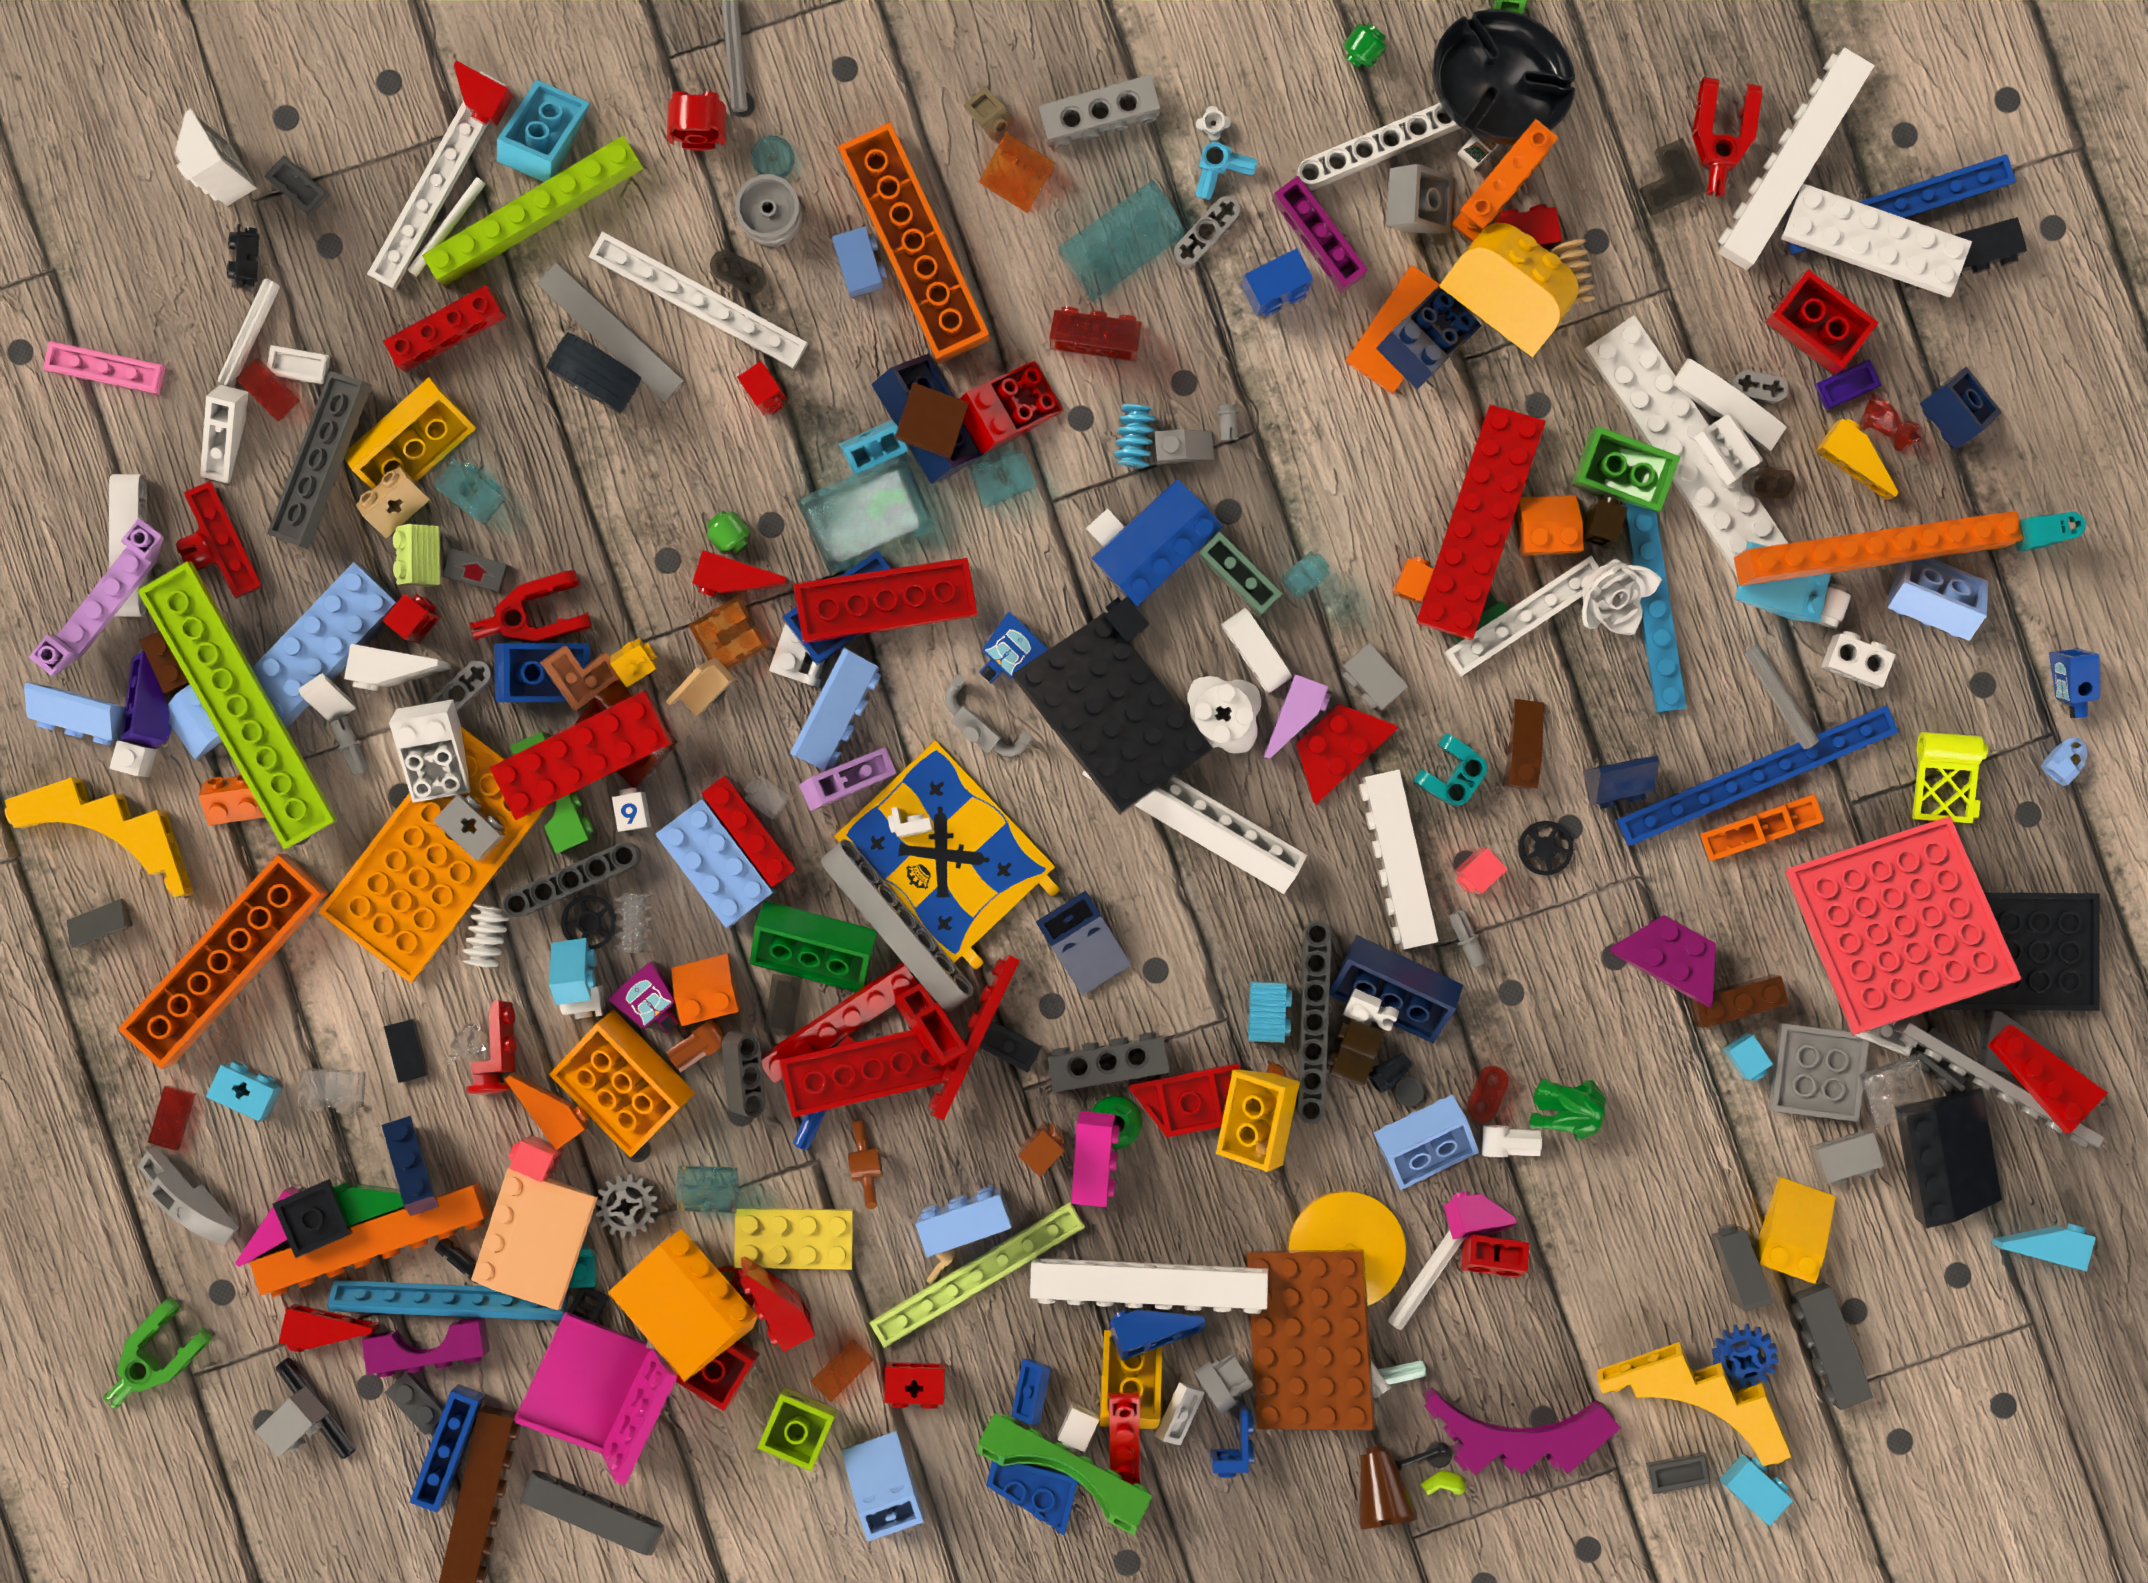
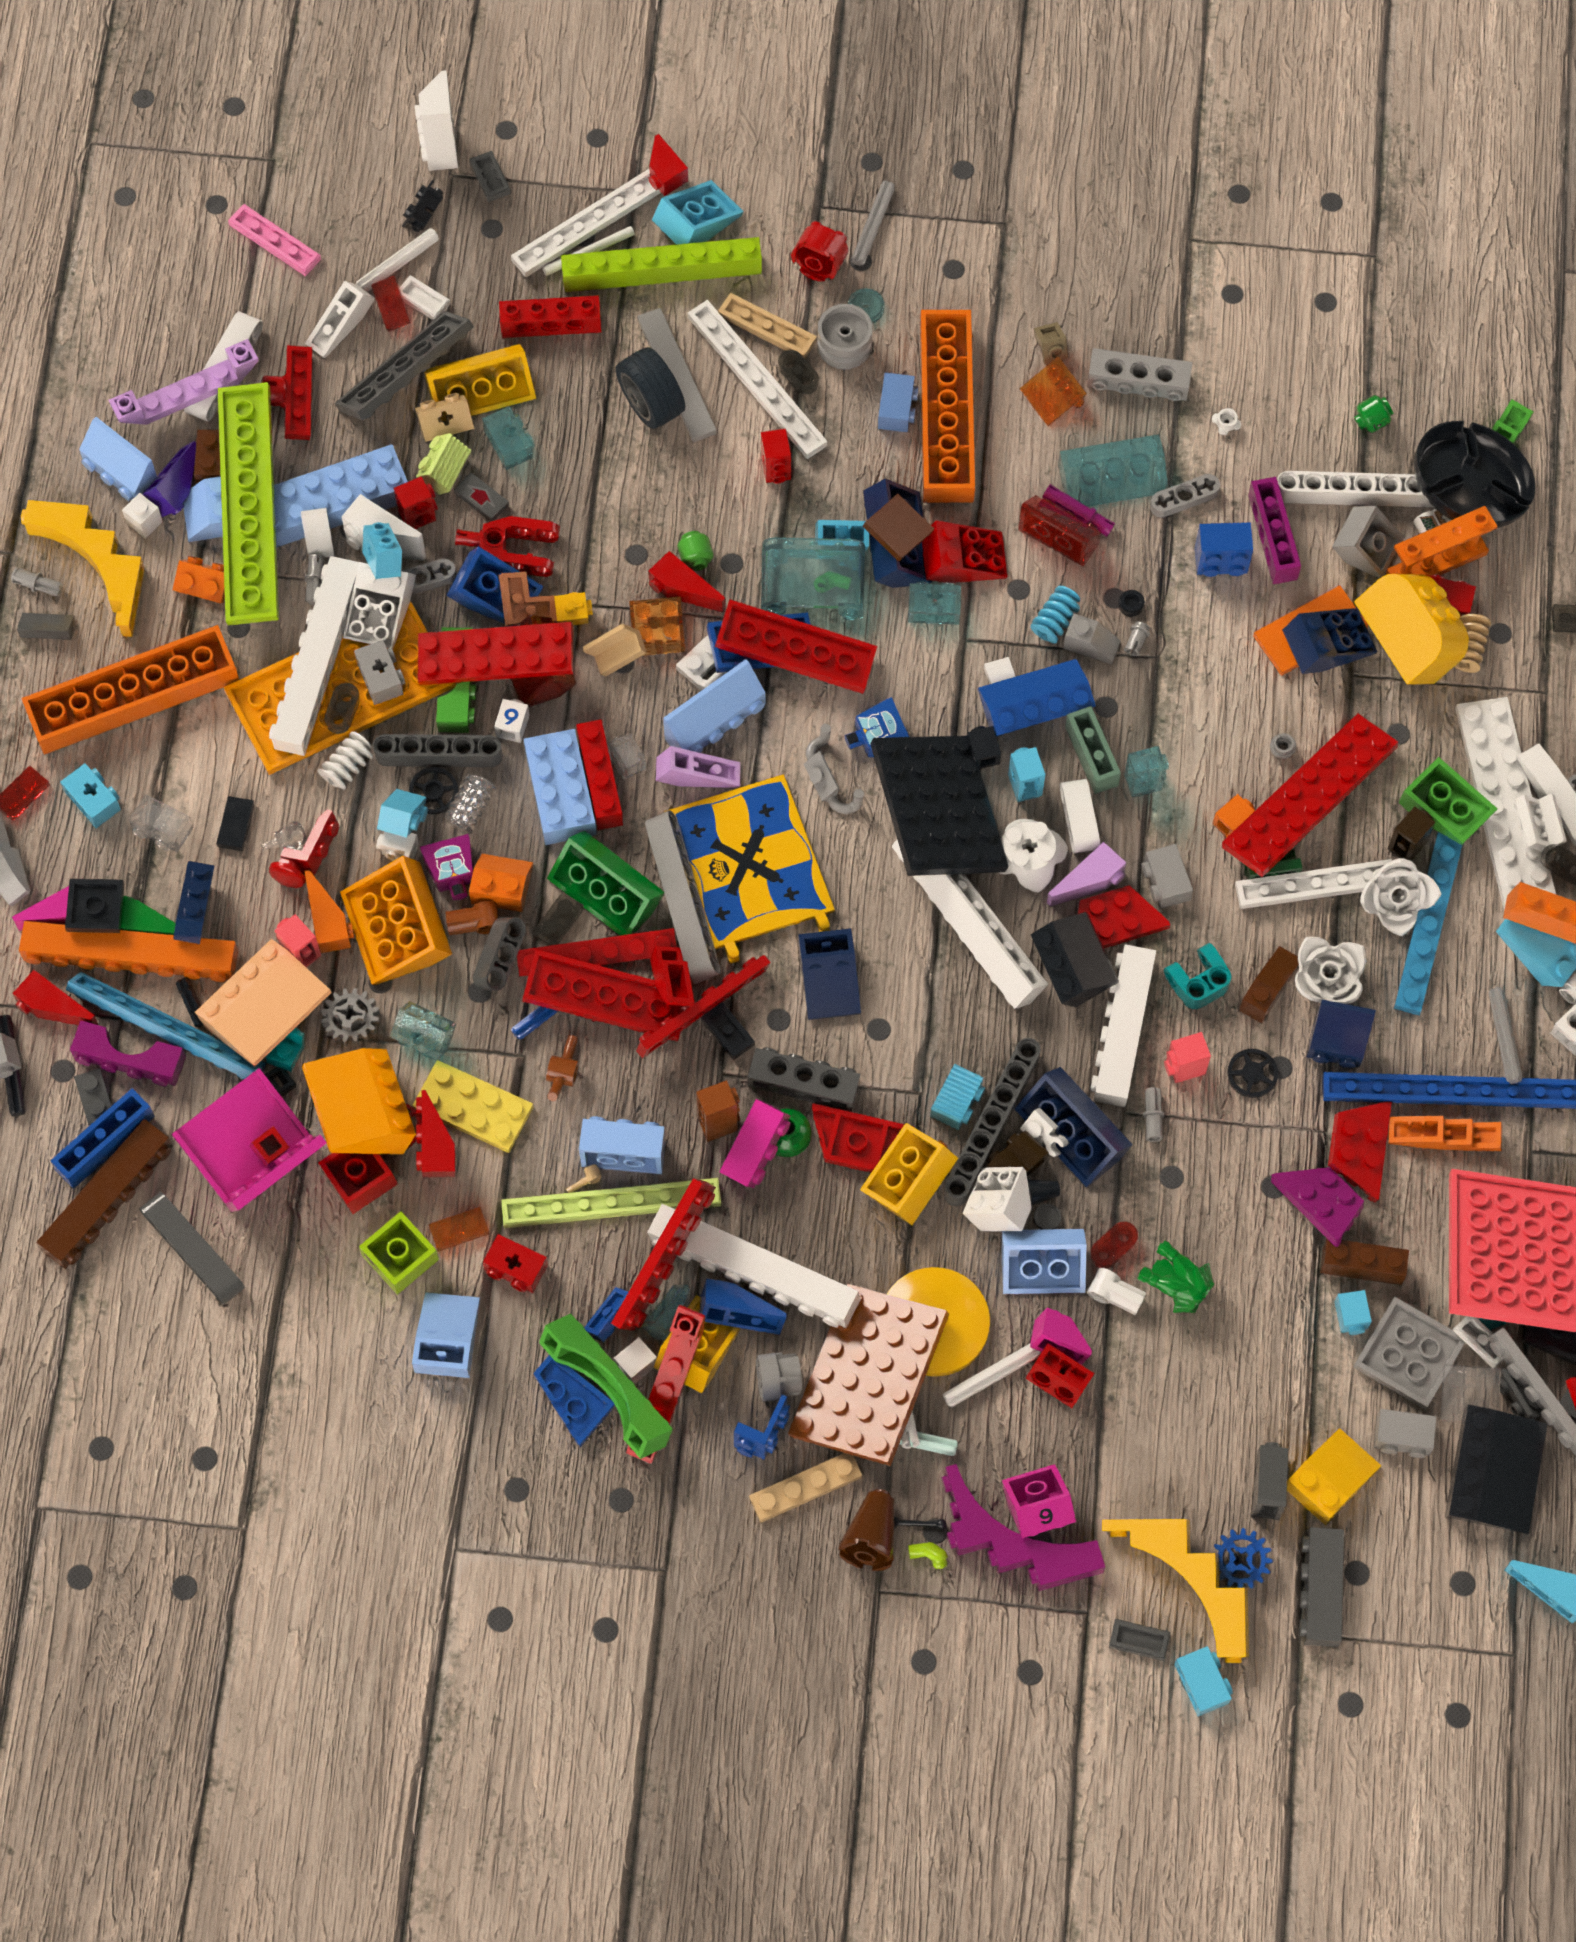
camera: 20 degrees right, 20 degrees down
(63, 881) = (36, 582): none -> light grey axle
(396, 839) = (315, 659): none -> white brick
(407, 703) = (382, 550): none -> medium azure brick
(451, 884) = (340, 709): none -> clear smoke plate
(617, 1387) = (269, 1146): none -> red brick
(679, 232) = (767, 325): none -> tan plate
(915, 824) = (732, 826): white bracket -> none
(1063, 1326) = (659, 1263): none -> red plate
(1085, 1365) = (661, 1318): none -> clear light blue slope
(1111, 303) = (1082, 512): none -> magenta pin
(1179, 1413) = (727, 1389): white plate -> none
(1184, 633) = (1026, 774): none -> medium azure brick
(1204, 382) = (1131, 603): none -> black tile
(1210, 172) = (1211, 452): medium azure axle -> none
(1295, 1473) = (805, 1486): none -> tan plate
(1321, 815) = (1074, 959): none -> black slope
(1359, 1107) = (999, 1199): none -> white slope
(1432, 467) = (1283, 739): none -> light grey plate
(1530, 1394) = (1038, 1501): none -> dark pink brick
(1549, 526) = (1365, 826): orange slope -> none
(1595, 693) = (1344, 961): none -> white brick
(1685, 880) = (1360, 1146): none -> red wing

